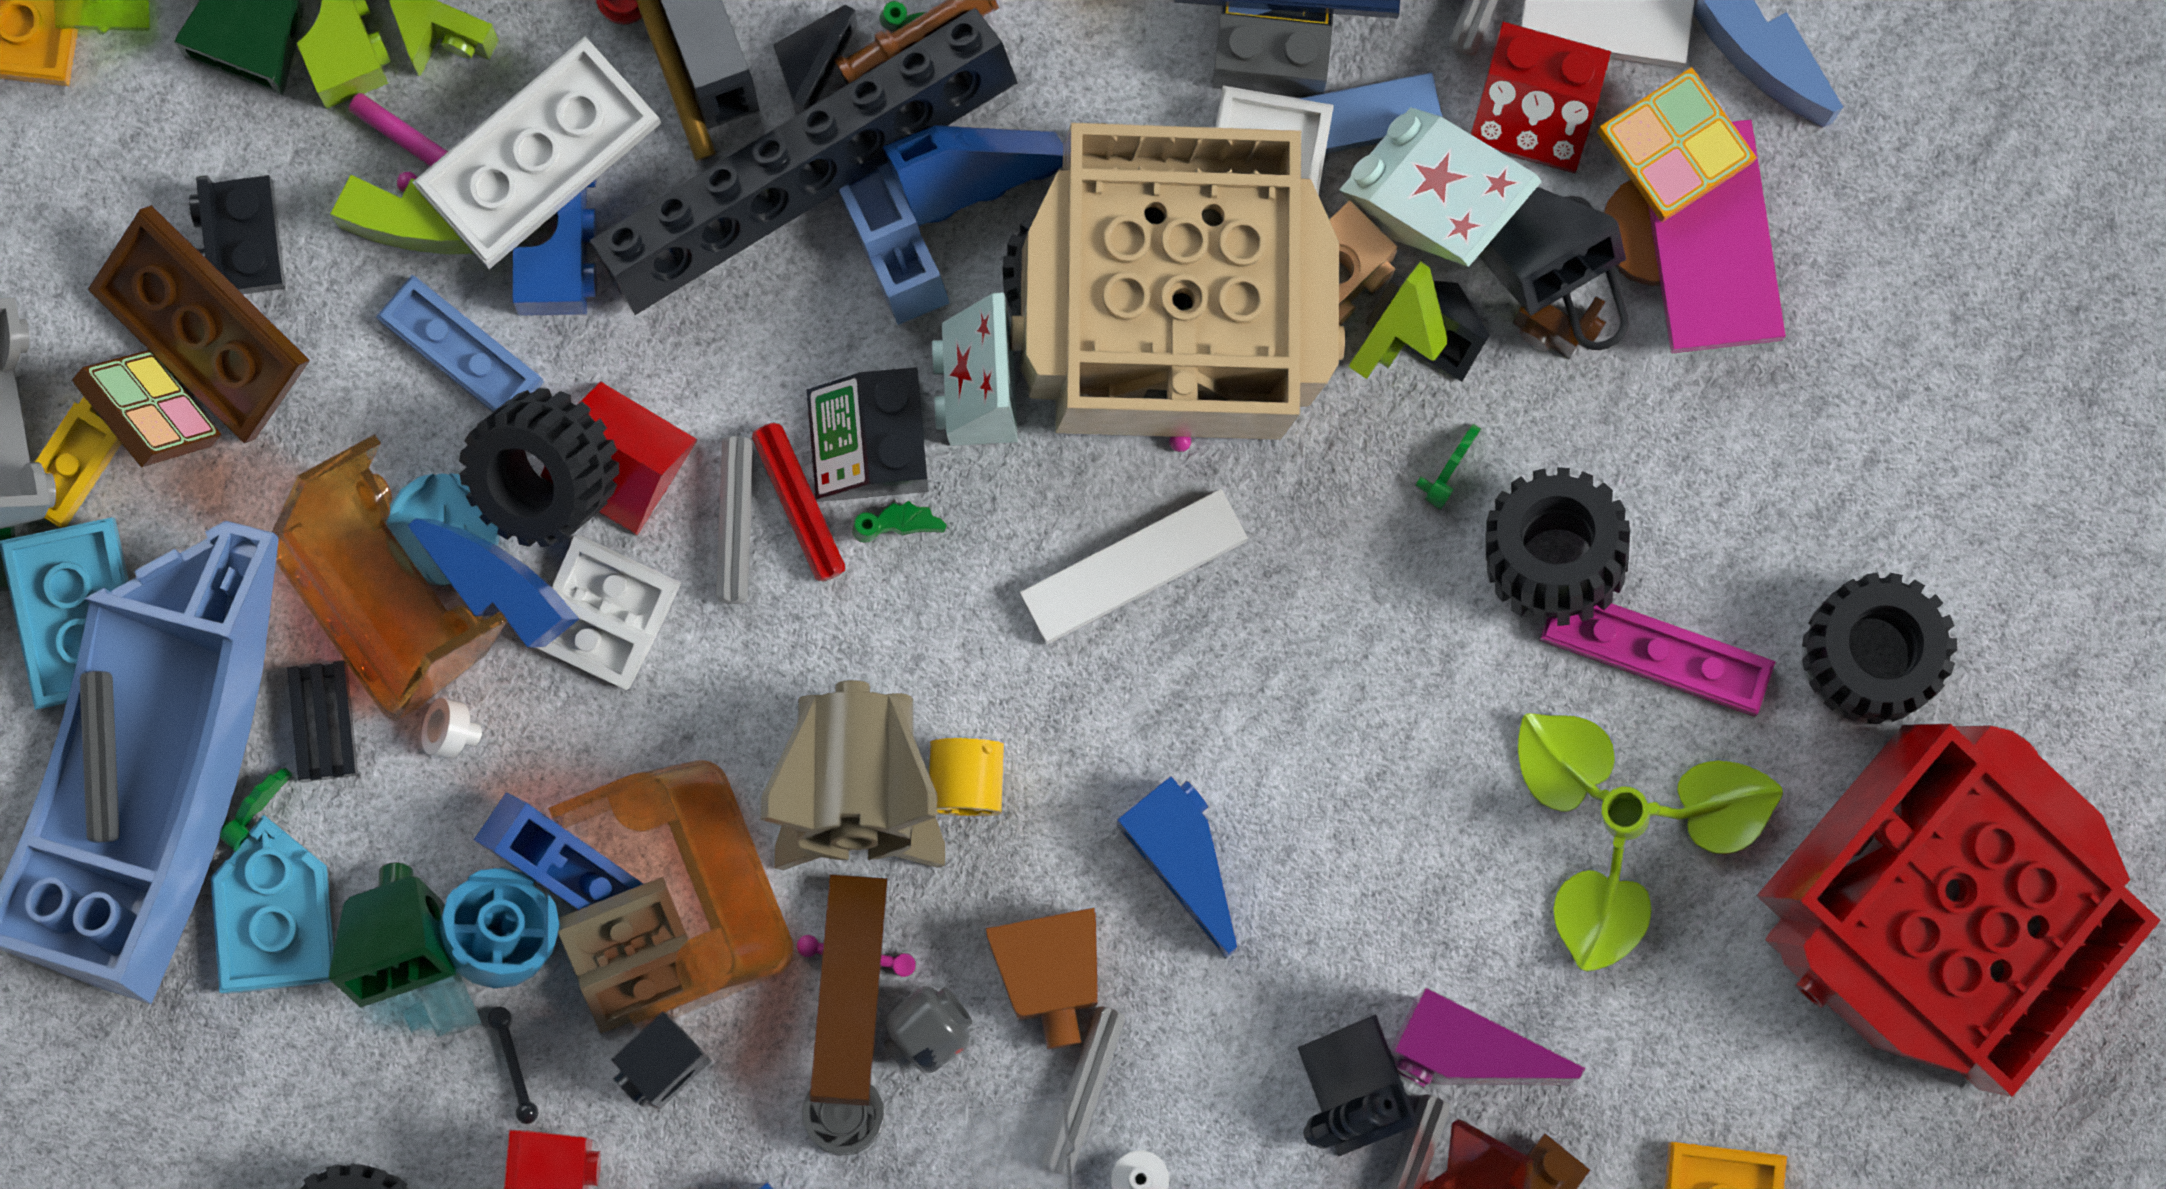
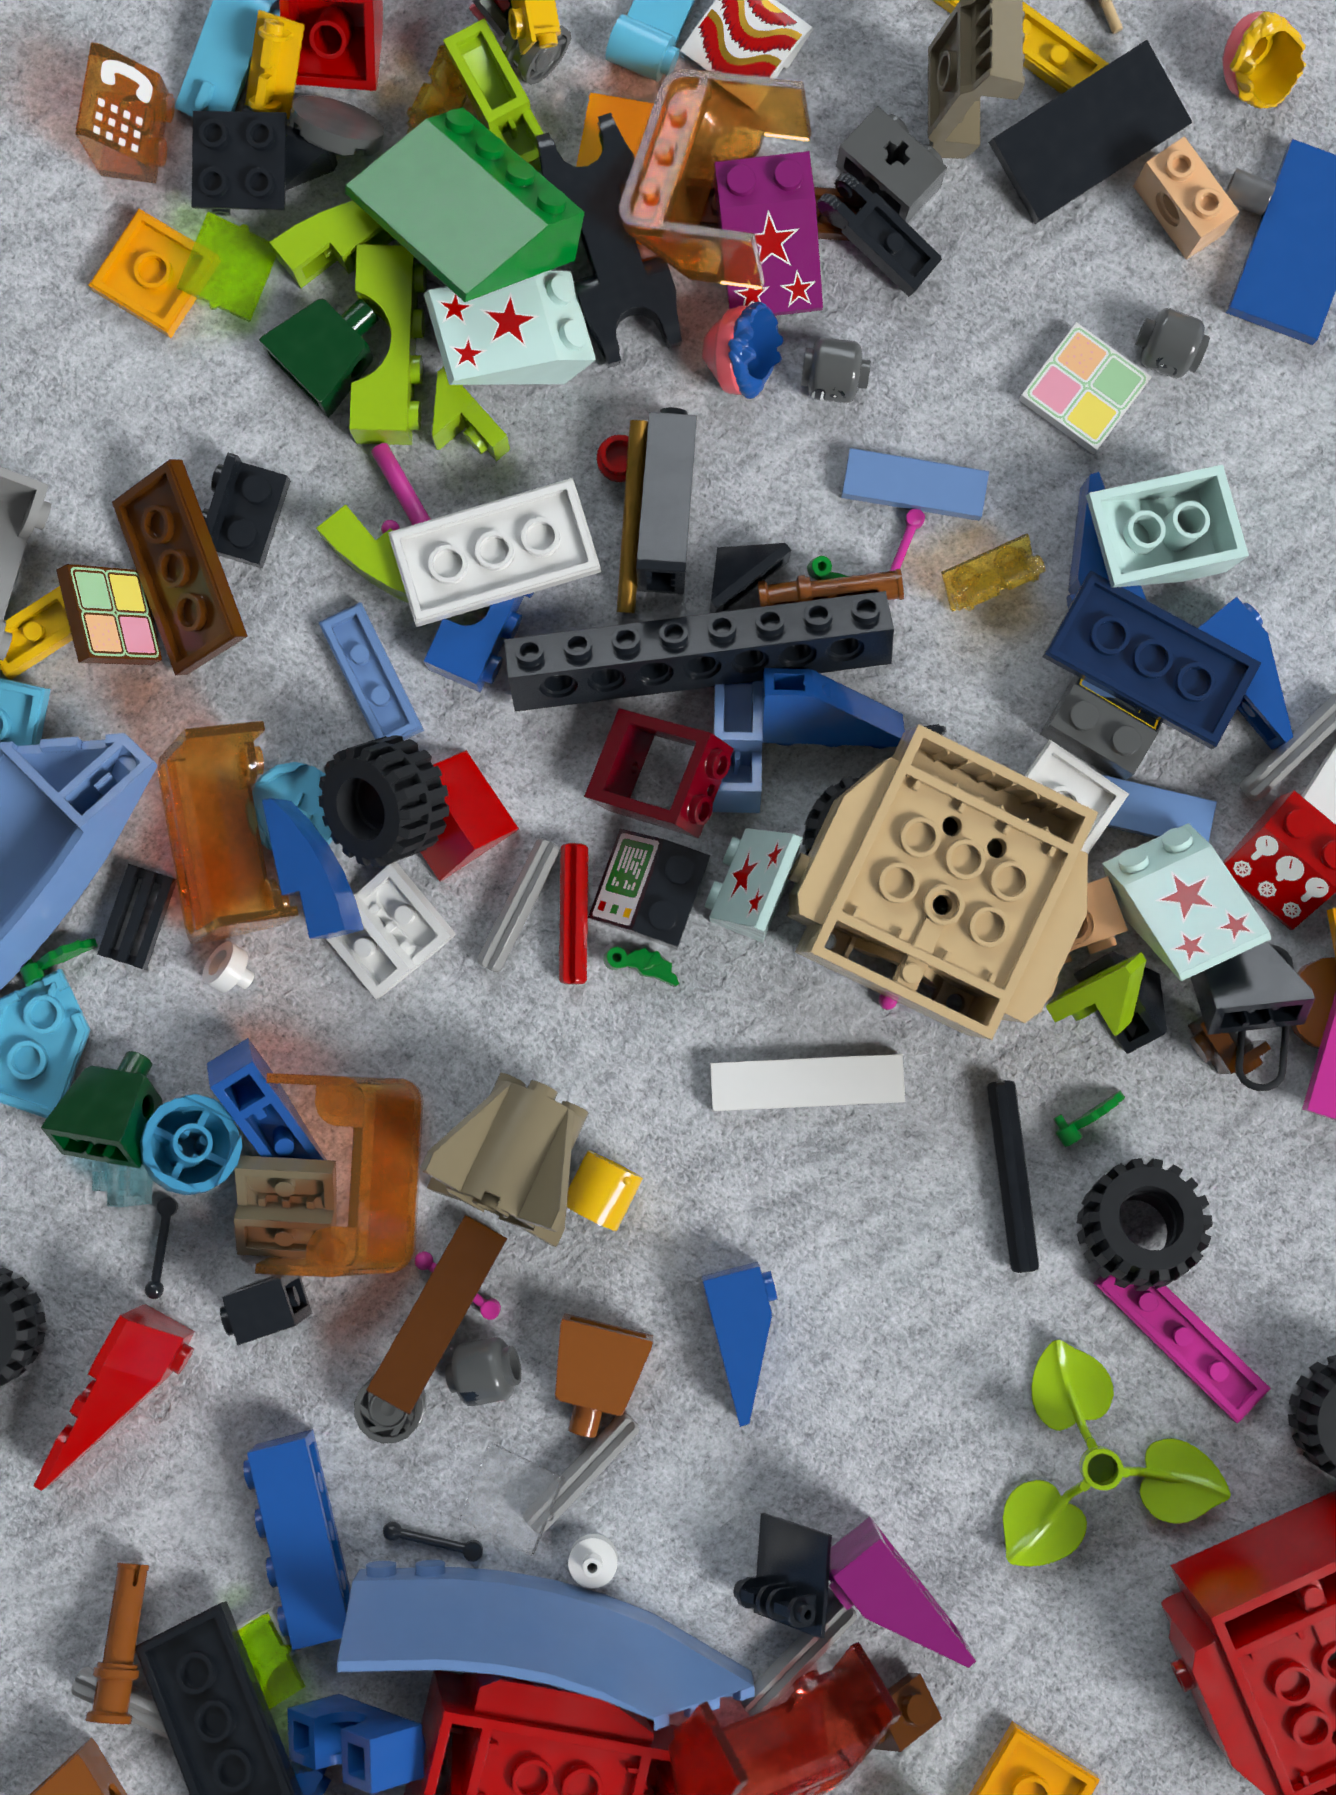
camera: 25 degrees right, 5 degrees up
(777, 314) = (625, 756): none -> dark red window
(1399, 564) = (1013, 1176): none -> black axle

